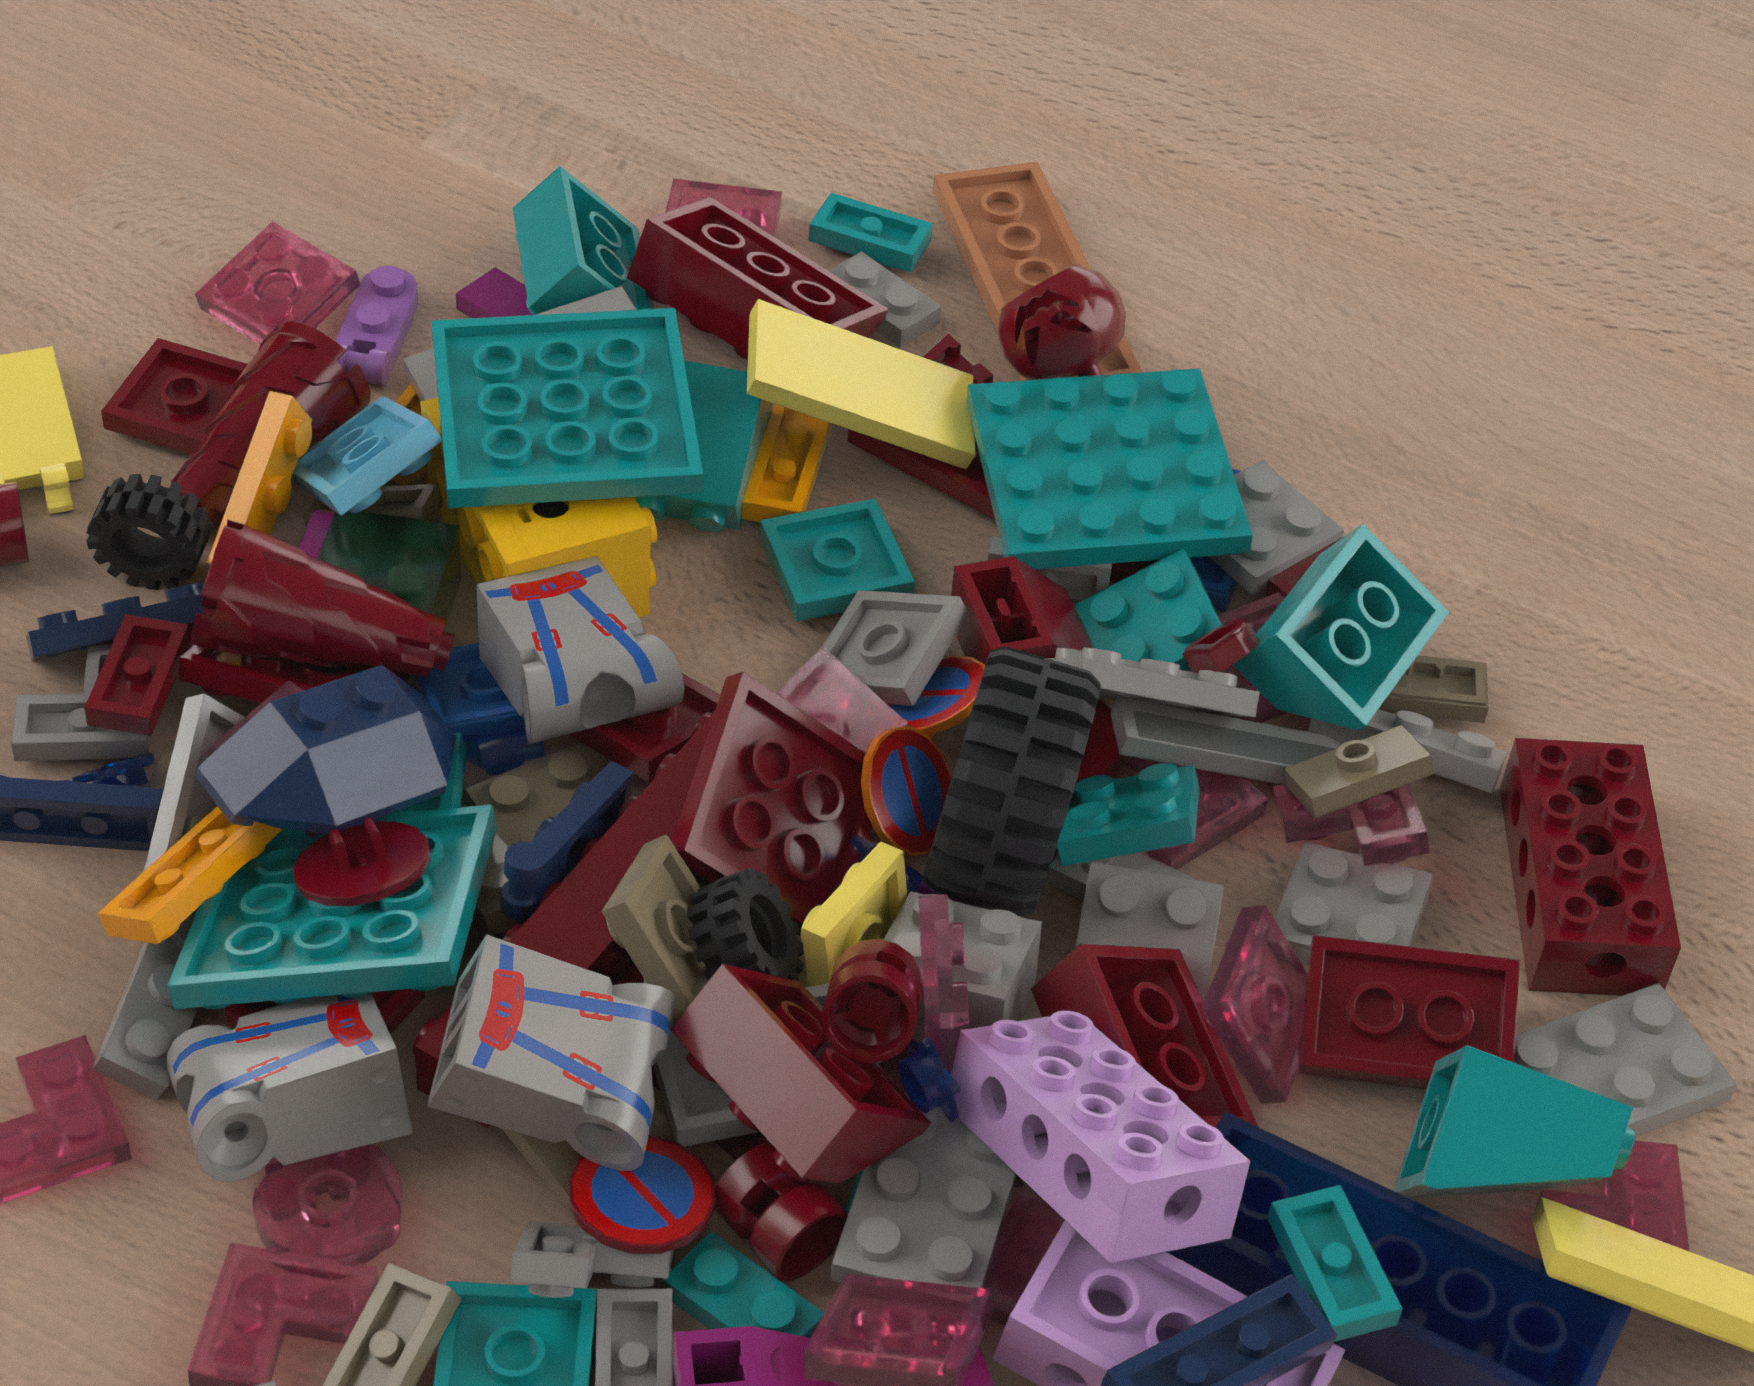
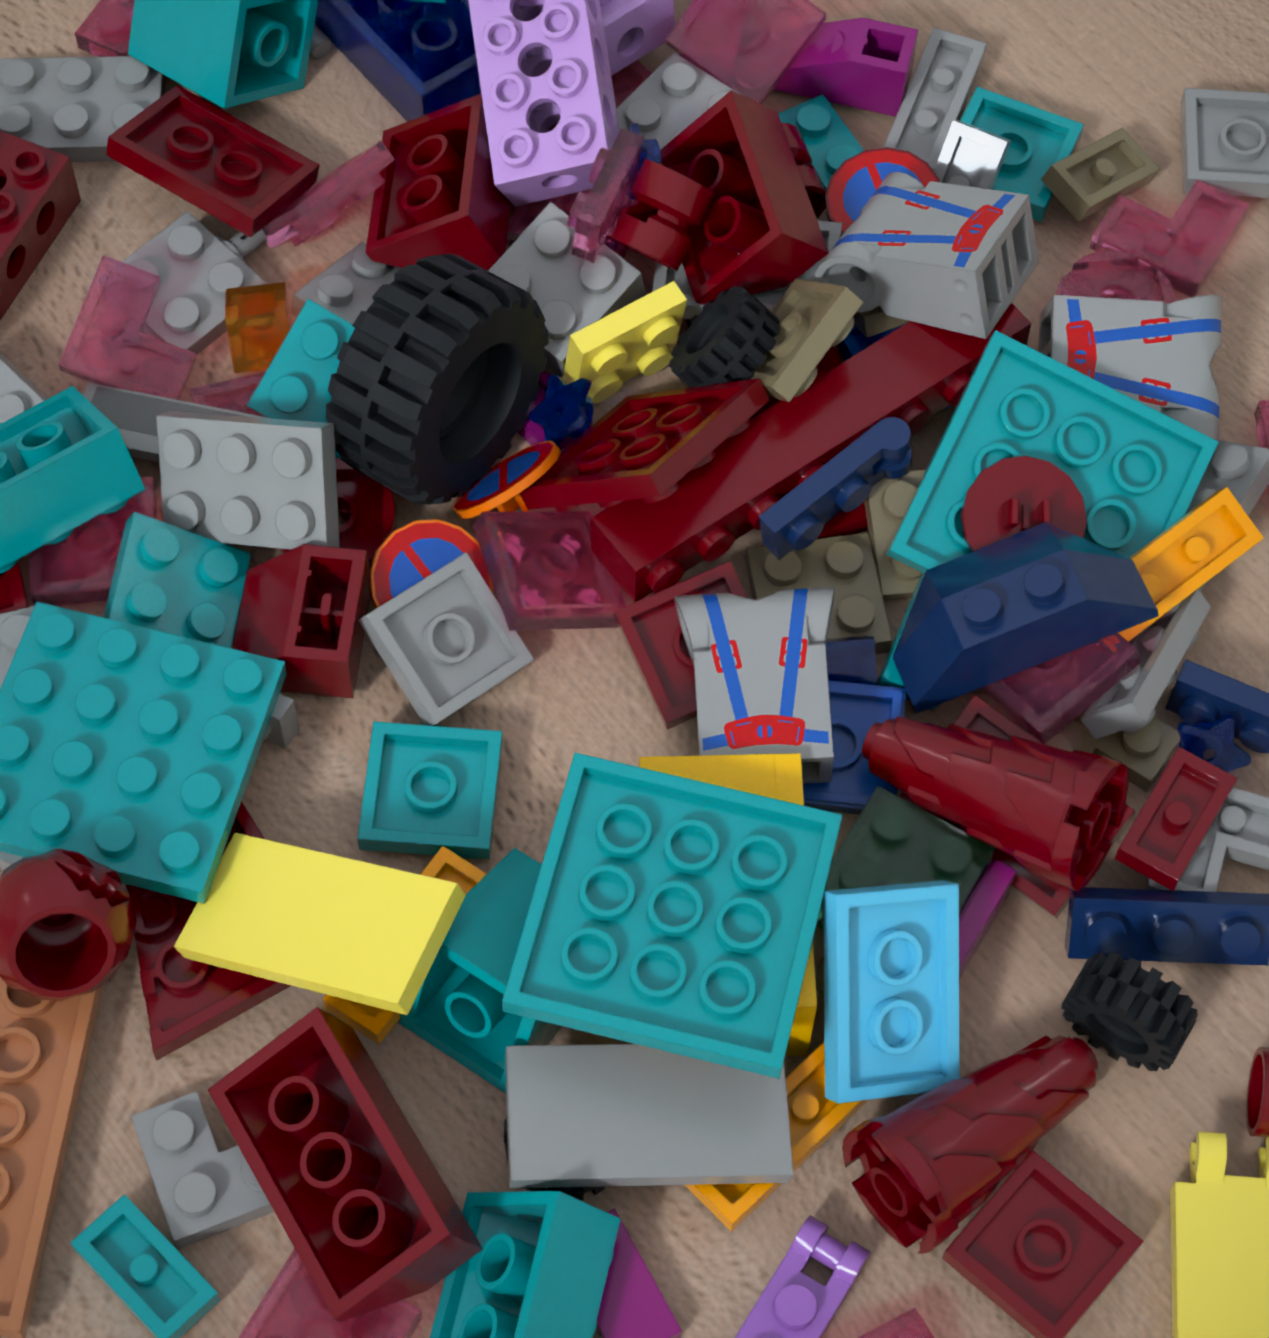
camera: 155 degrees left, 15 degrees up
(266, 473) = (999, 1009): light orange plate -> none
(1221, 646) = (153, 482): dark red tile -> none
(1244, 860) = (256, 324): none -> clear orange brick
(1358, 771) = (106, 354): dark tan plate -> none

